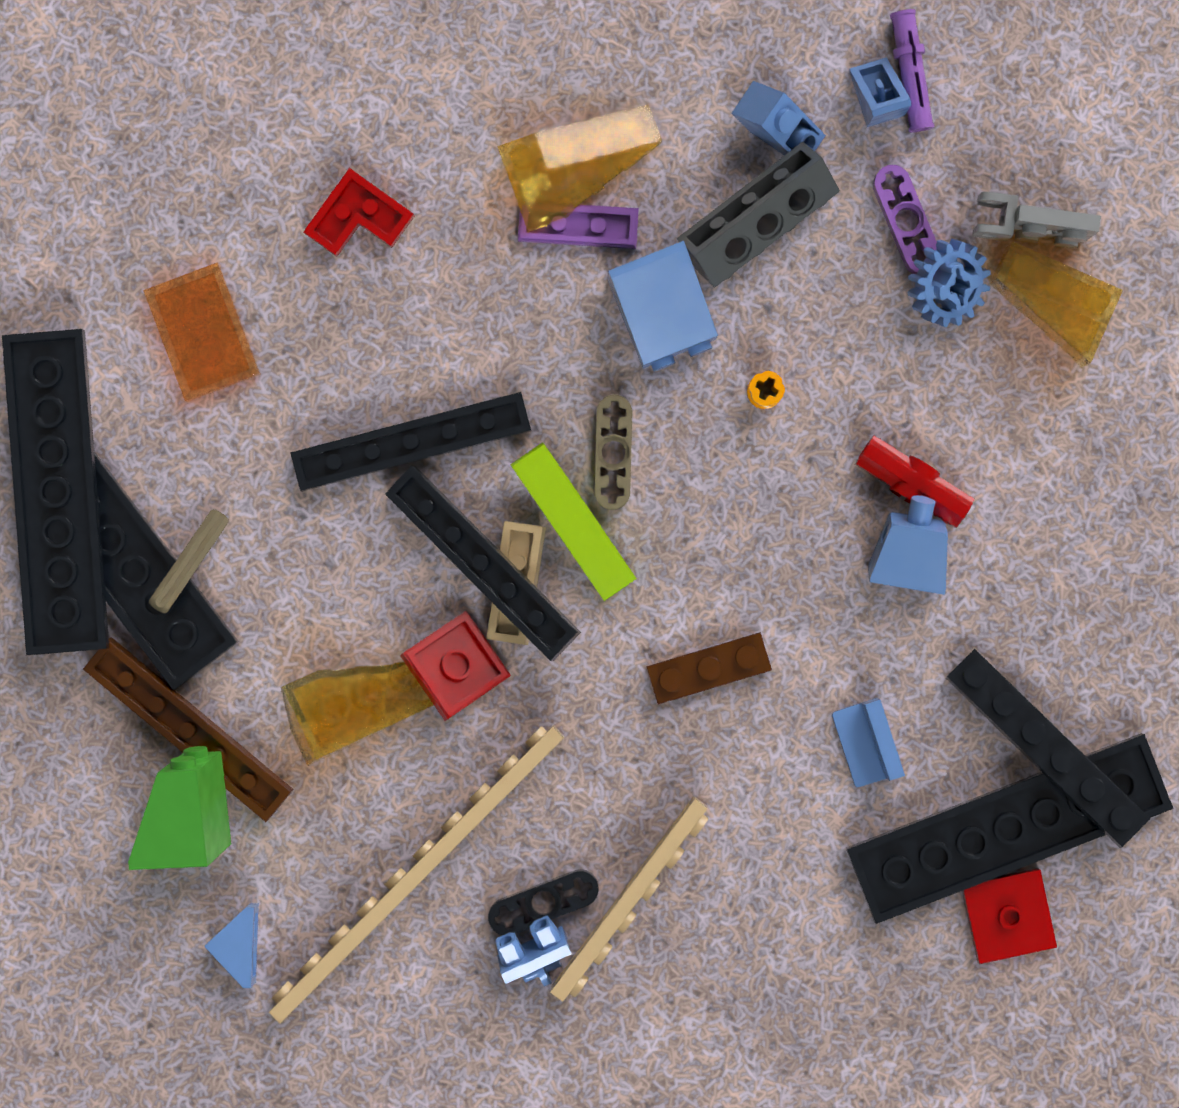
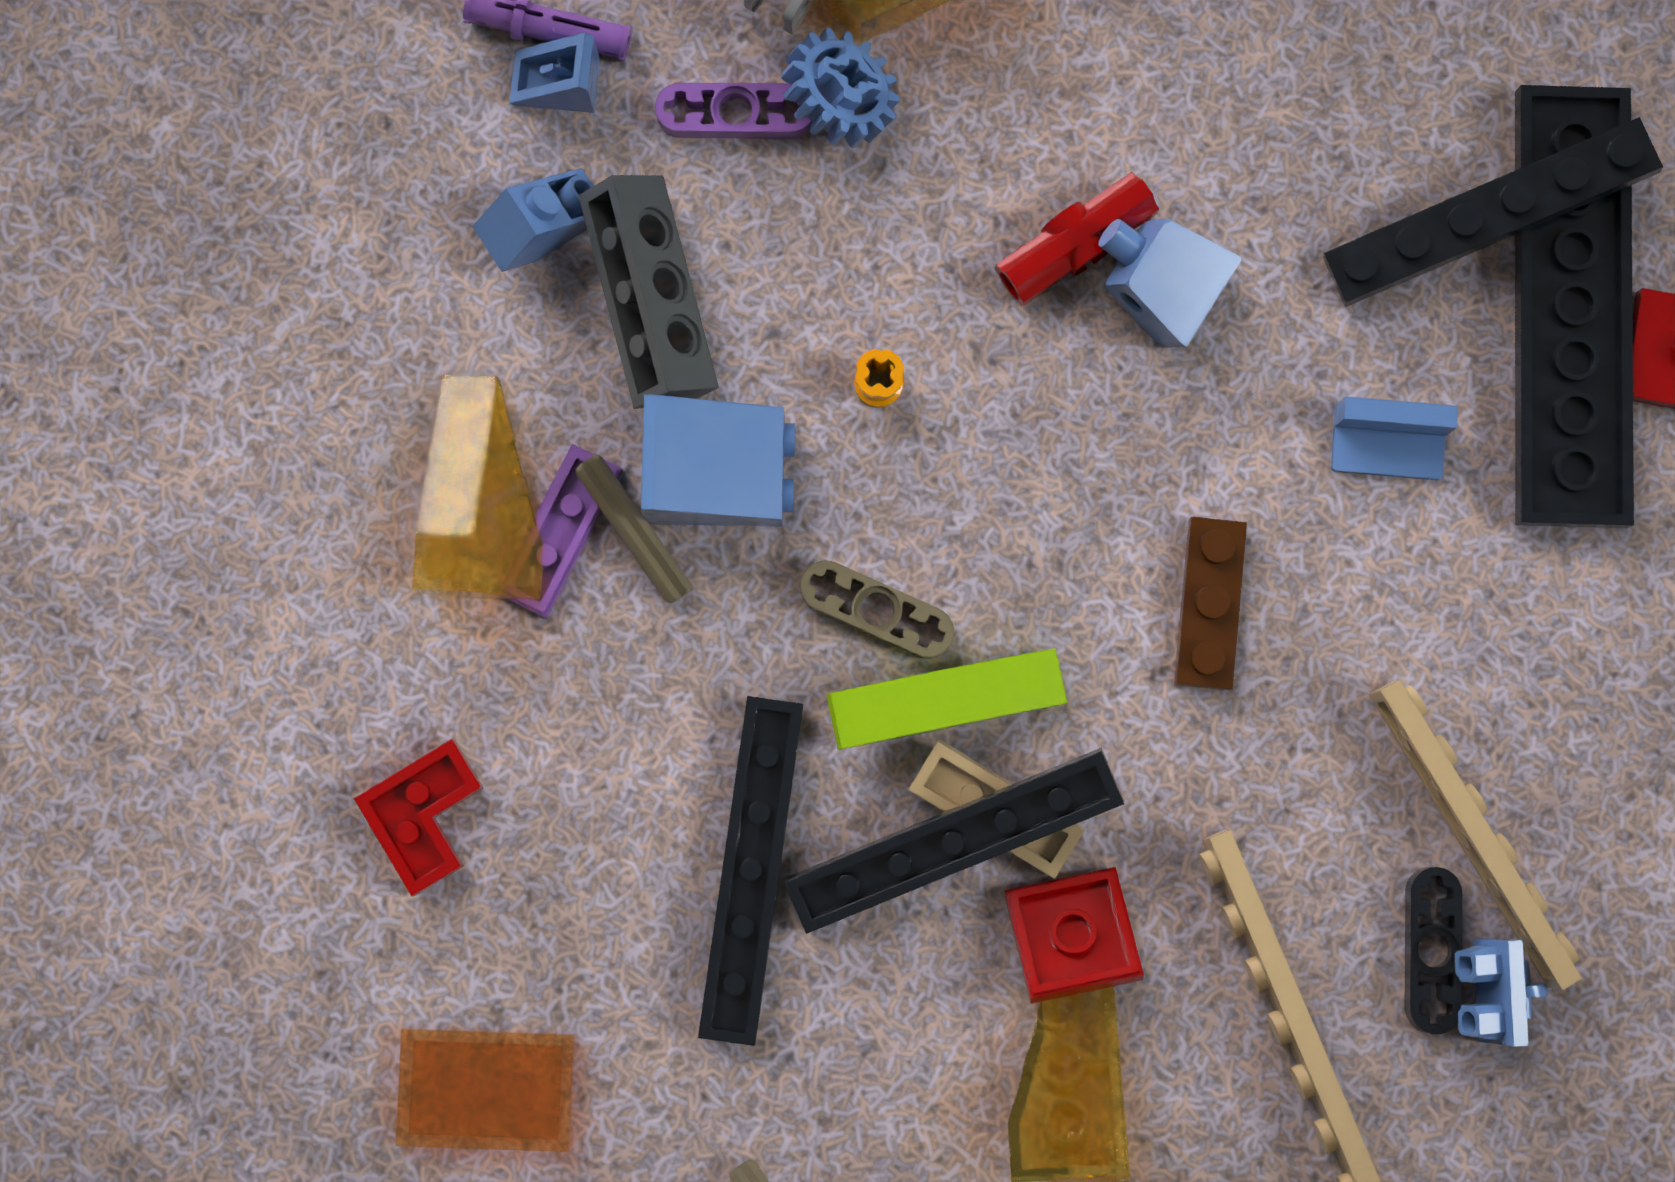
camera: 70 degrees left, 5 degrees down
(598, 271) = (633, 528): none -> dark tan axle

